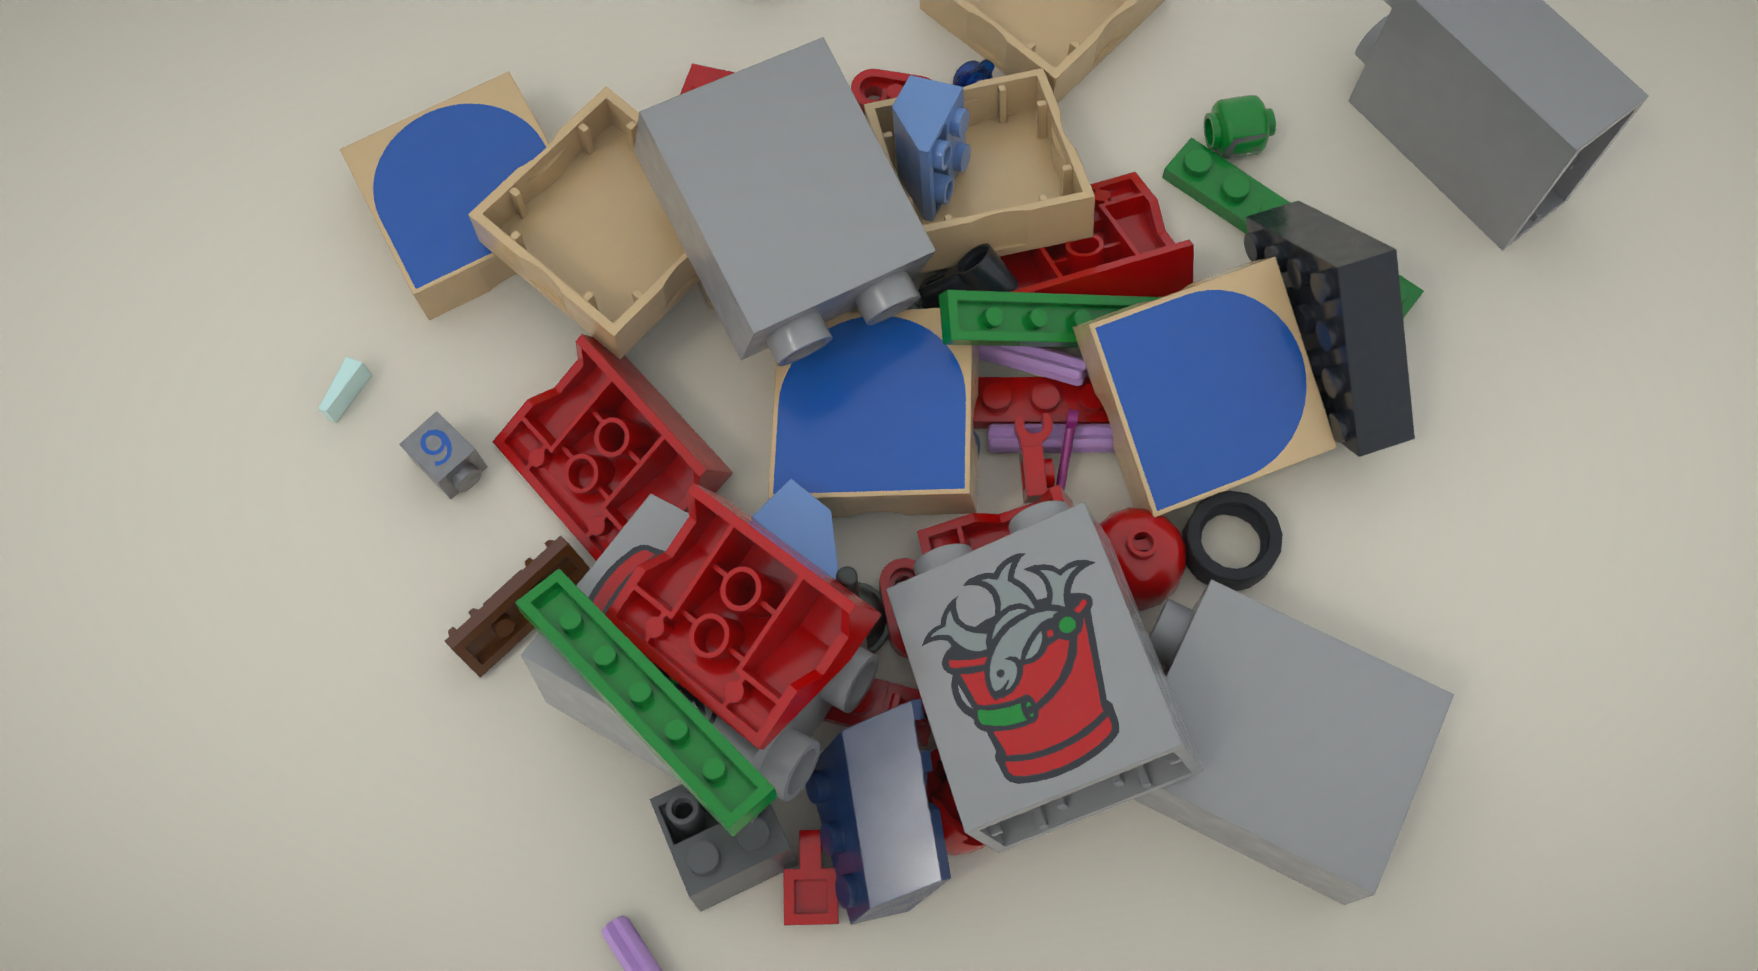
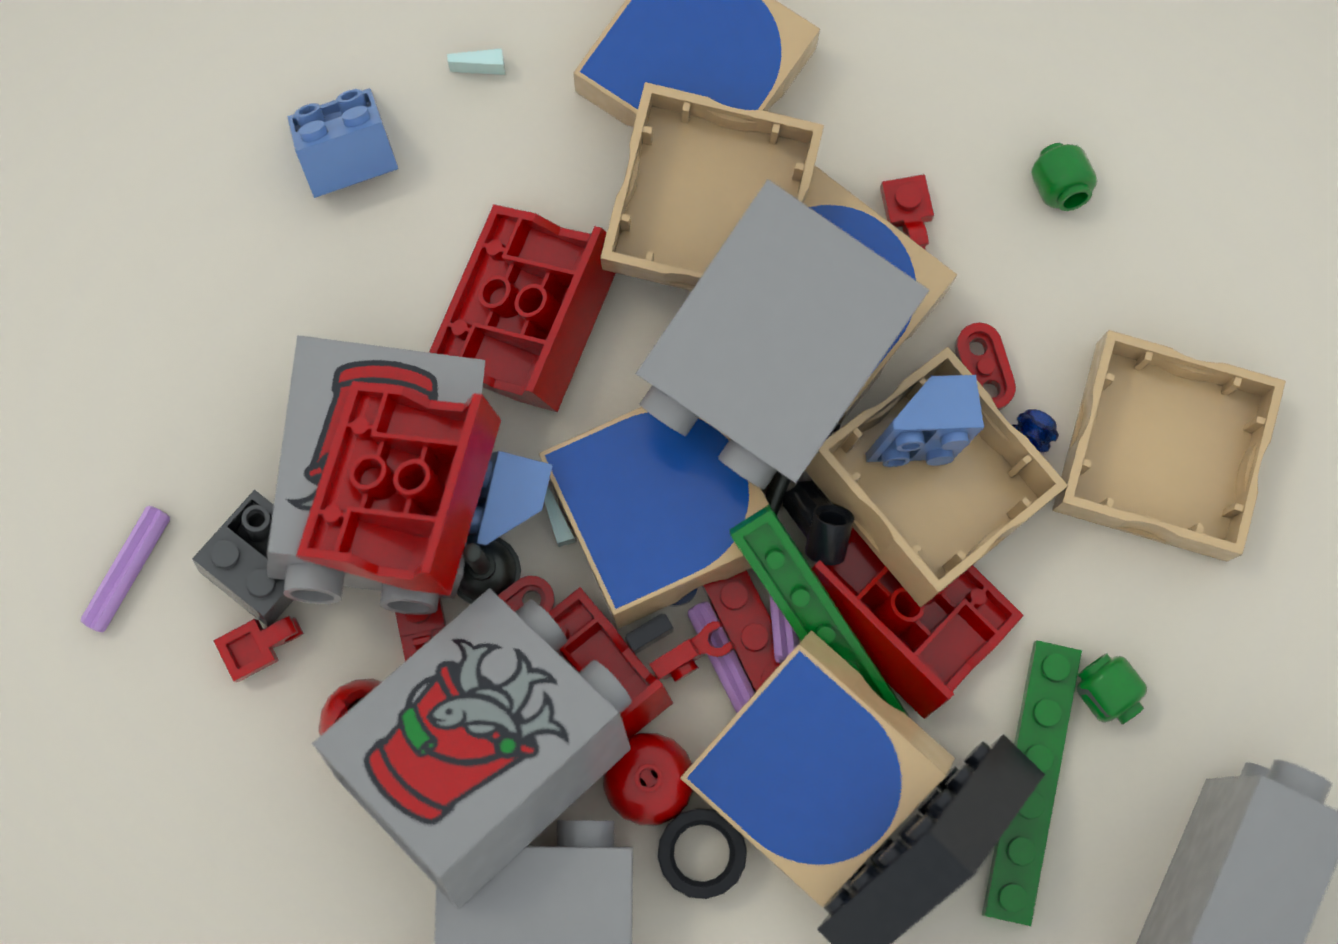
camera: 60 degrees right, 10 degrees up
(341, 549) = (341, 142): none -> medium blue slope
(444, 455) = (457, 175): flat silver brick -> none
(498, 623) = (364, 304): reddish brown plate -> none
(648, 702) = (295, 450): green plate -> none
(849, 525) = (560, 527): none -> light aqua piece
(878, 816) = (315, 670): wedge -> none
(994, 486) = (649, 633): none -> black tile
(1070, 426) = (674, 689): magenta hinge -> none

